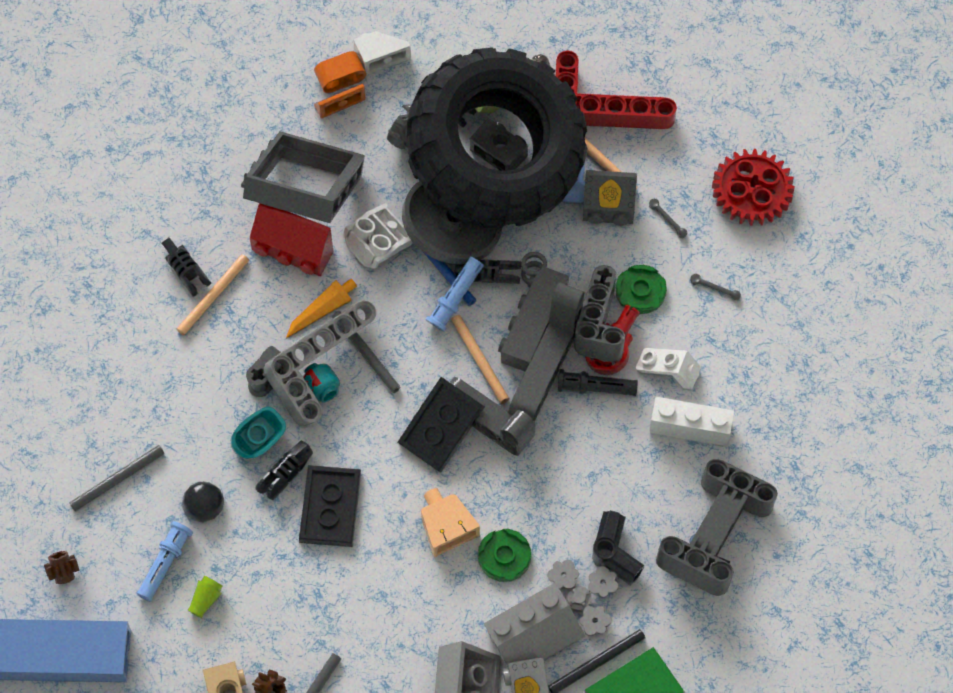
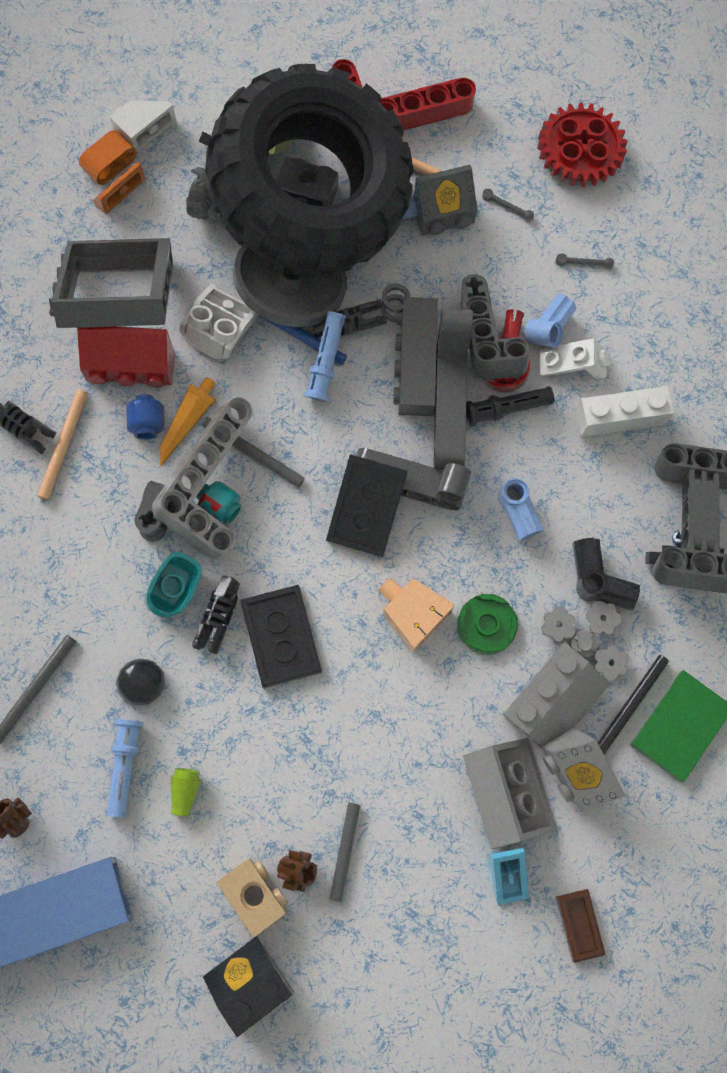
camera: 25 degrees left, 10 degrees up
(288, 294) = (145, 417): none -> blue head
(480, 359) = (377, 419): light nougat piece -> none
(569, 472) = (520, 512): none -> light blue piece
(641, 288) = (512, 287): green tile -> none
(655, 332) = (549, 327): none -> light blue piece

